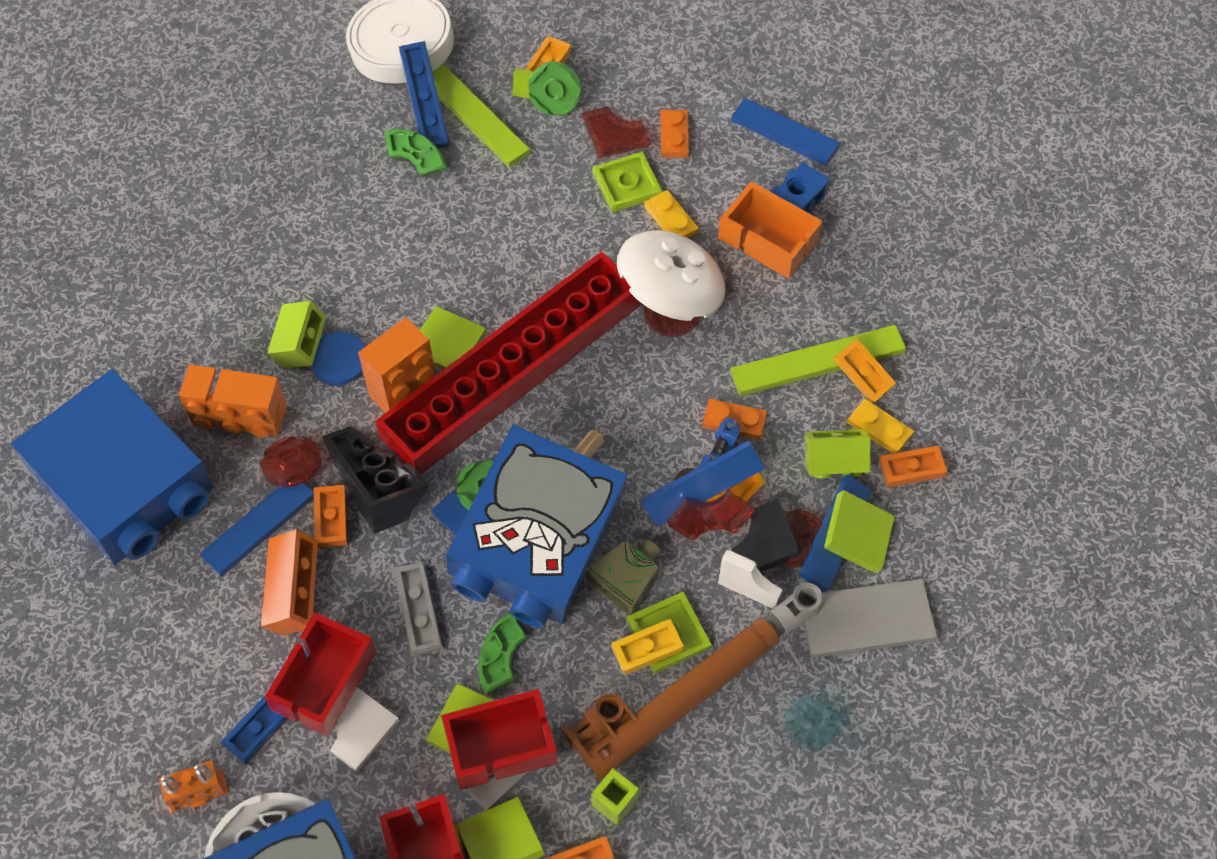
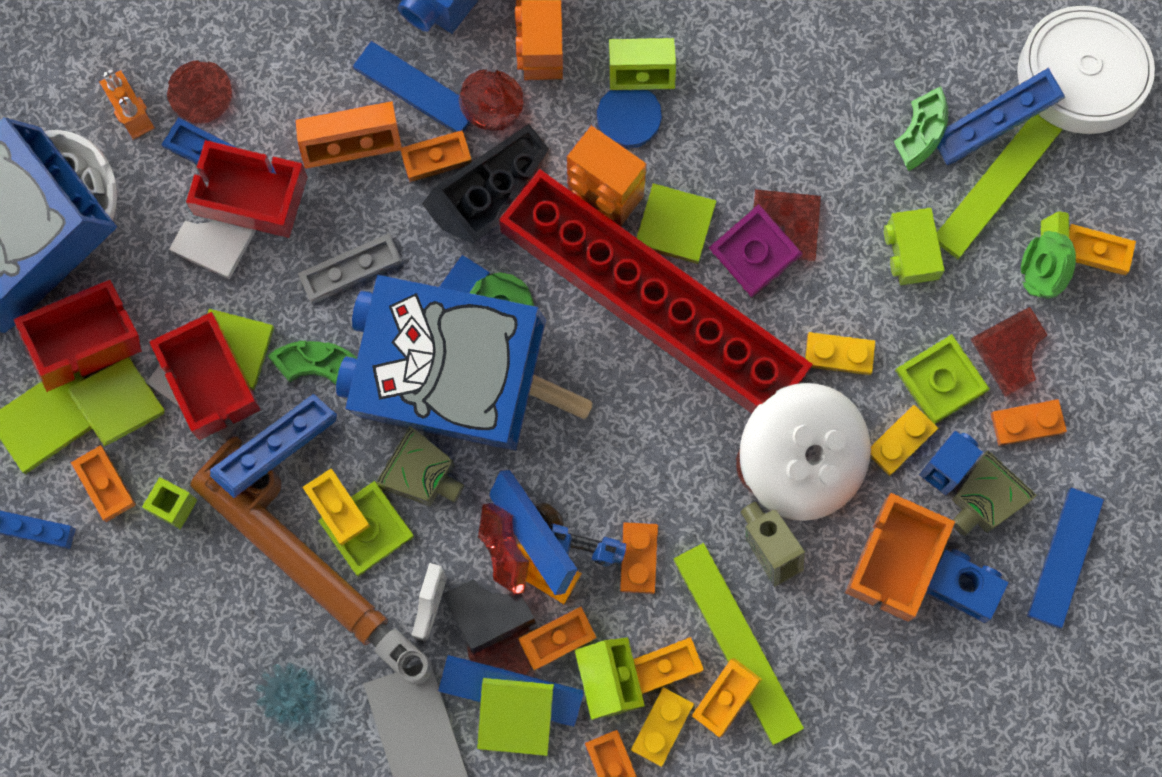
camera: 80 degrees right, 15 degrees up
(209, 720) = (206, 99): none -> clear red tile
(462, 253) = (797, 213): none -> clear red tile
(488, 285) = (755, 251): none -> magenta tile
(514, 174) = (914, 246): none -> lime brick
(579, 691) = (273, 445): none -> blue tile
(589, 242) = (840, 353): none -> yellow plate
(701, 179) = (951, 462): none -> blue brick
(727, 164) = (989, 495): none -> olive torso
(743, 312) = (778, 554): none -> olive torso
(796, 488) = (557, 638): none -> orange plate
(829, 408) = (667, 665): none -> light orange plate

